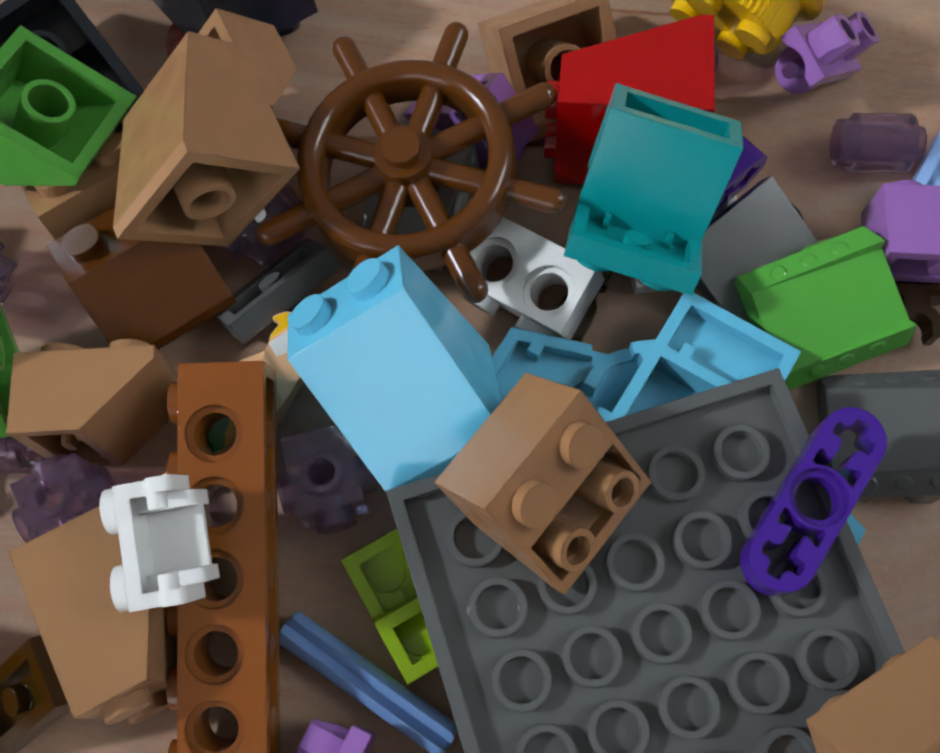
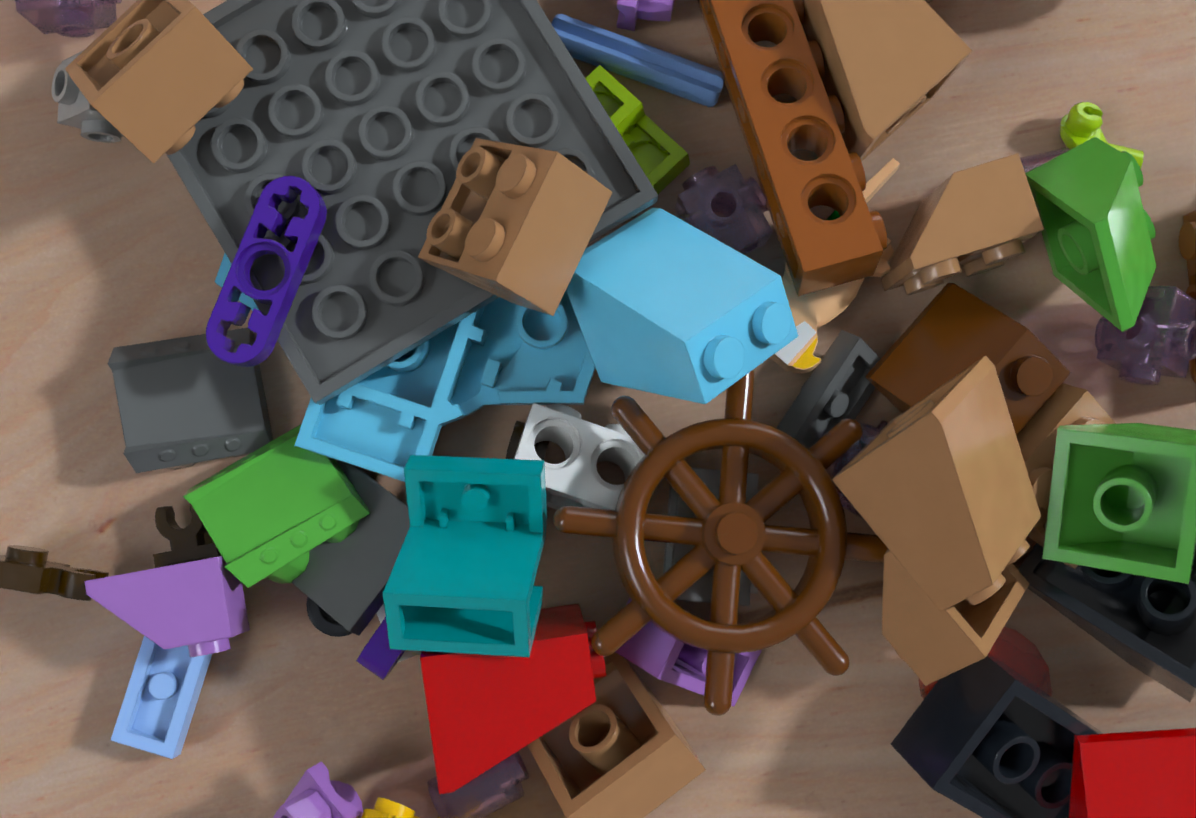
camera: 170 degrees right, 15 degrees up
(57, 493) = (950, 134): clear purple brick -> none
(160, 542) = (835, 78): white piece -> none
(877, 142) = (239, 727): clear purple brick -> none

